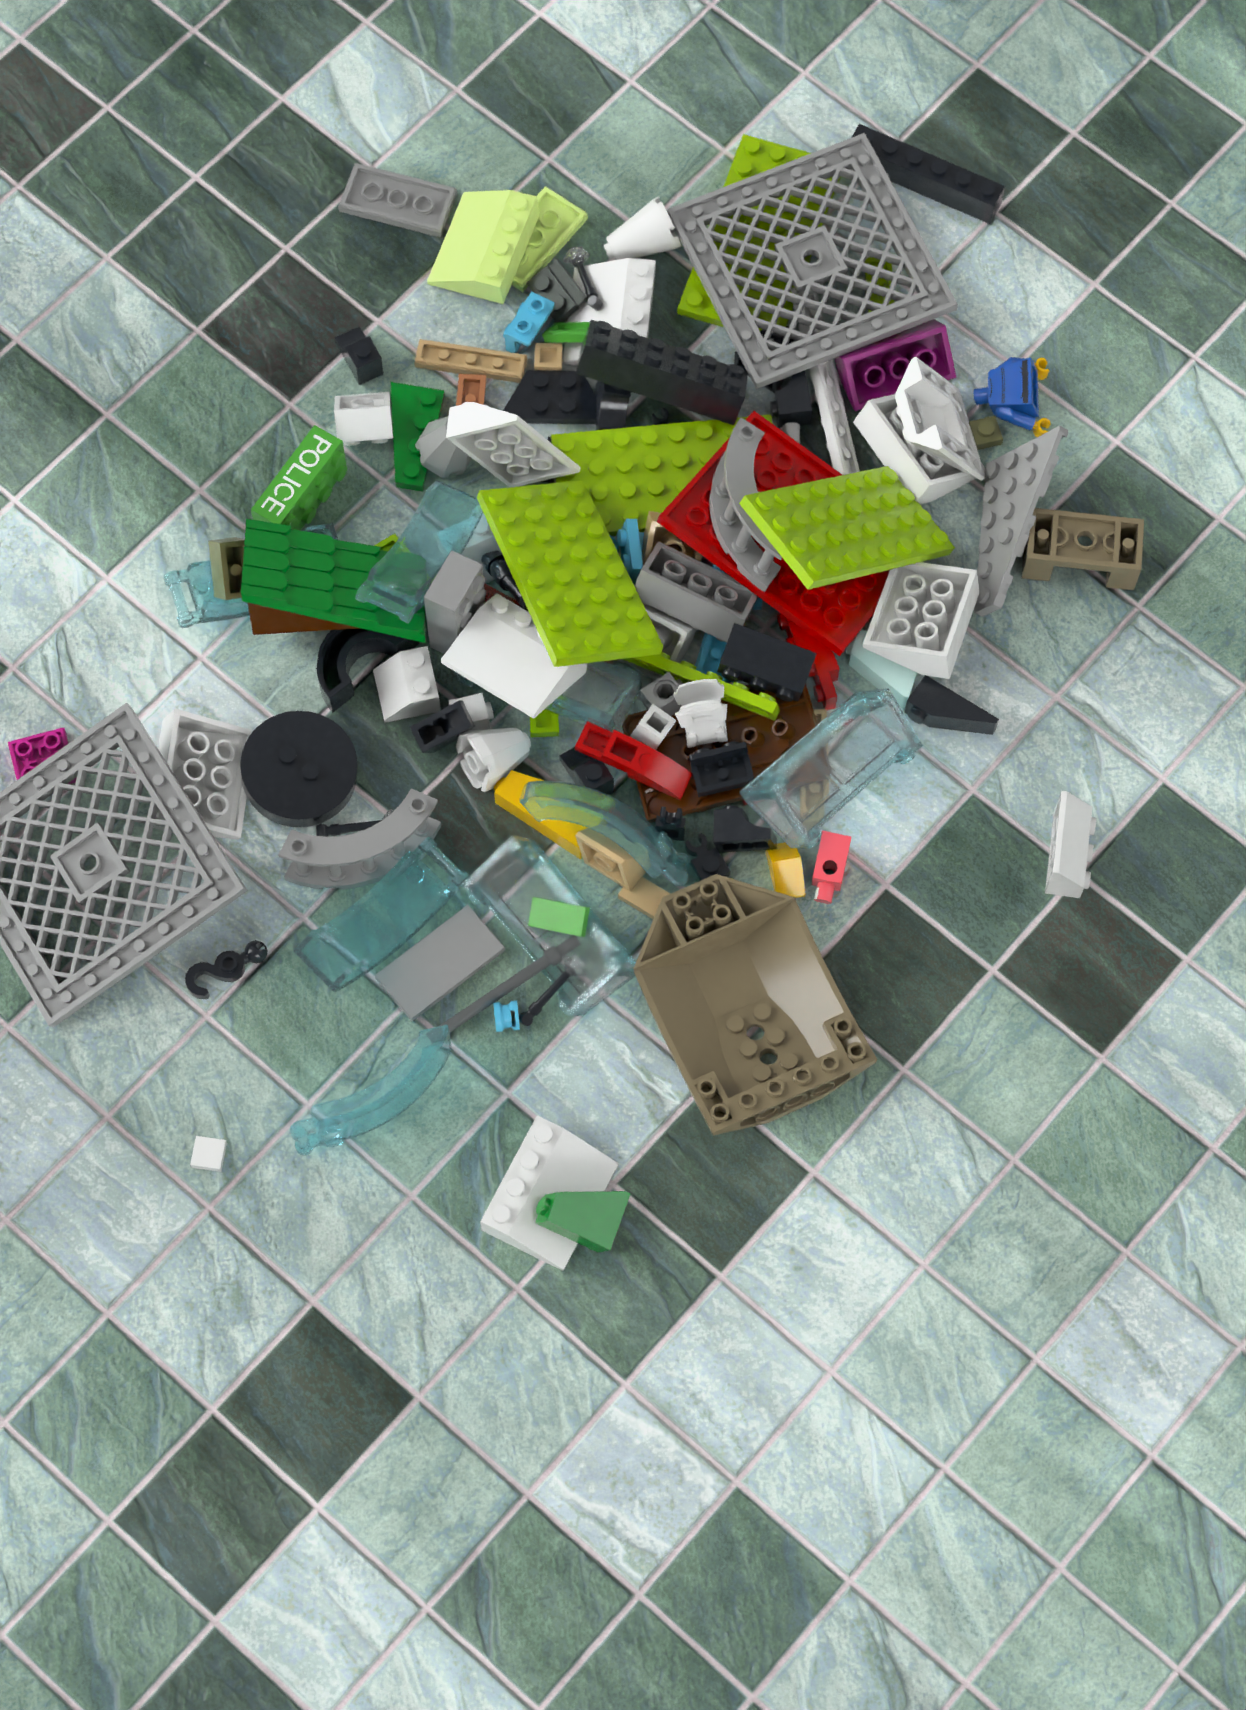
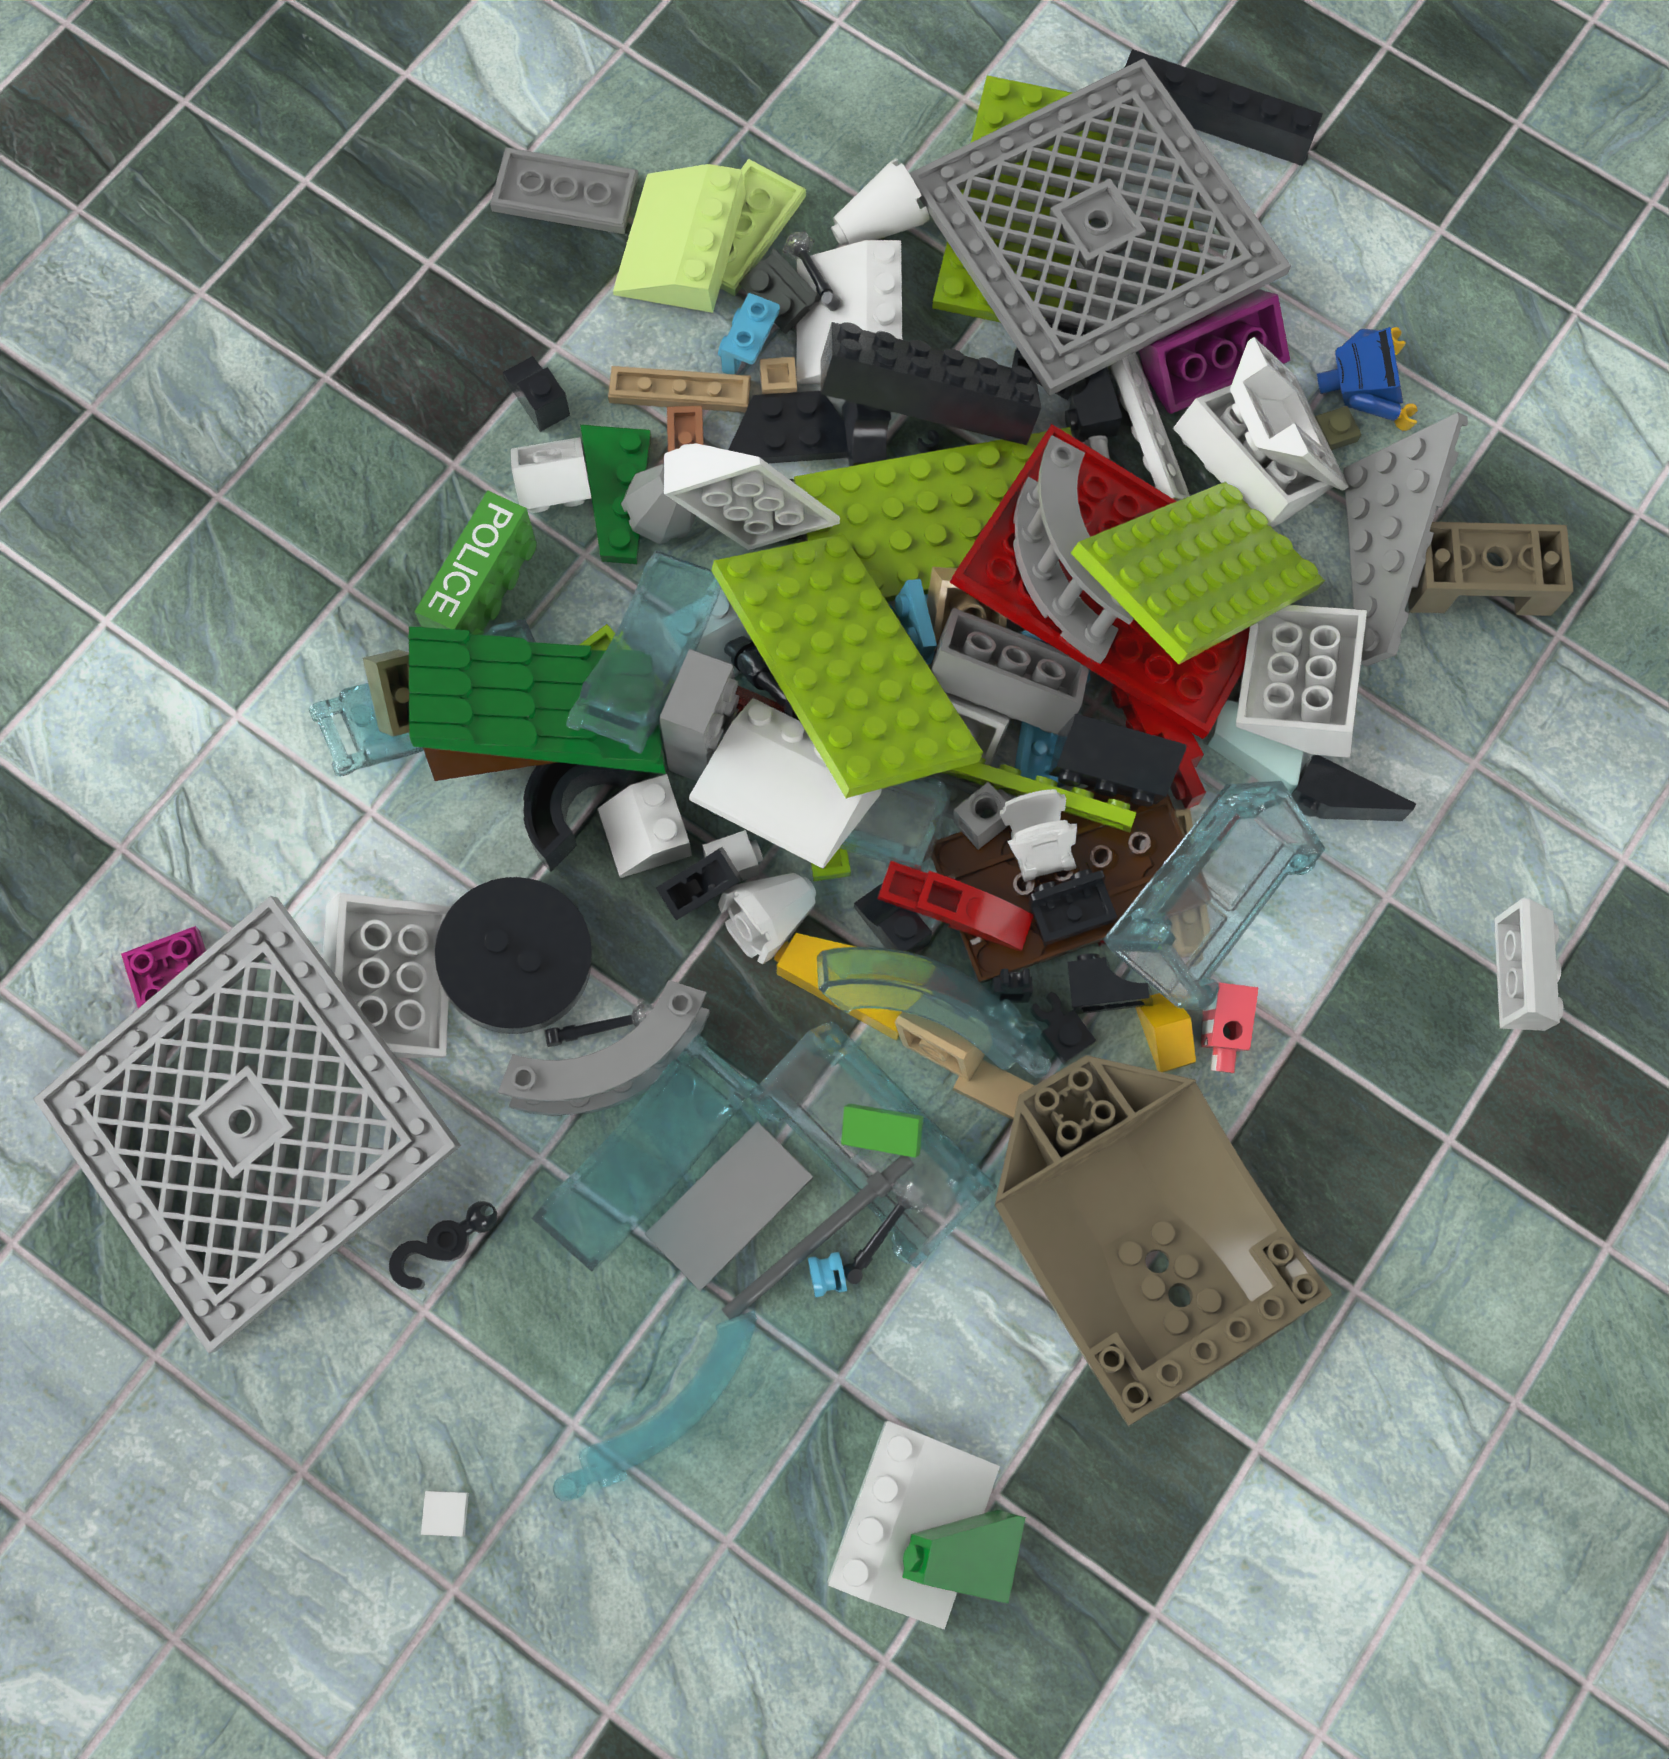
camera: 10 degrees left, 5 degrees up
(566, 332) = (799, 342): bright green tile -> none
(653, 727) = (975, 860): white brick -> none

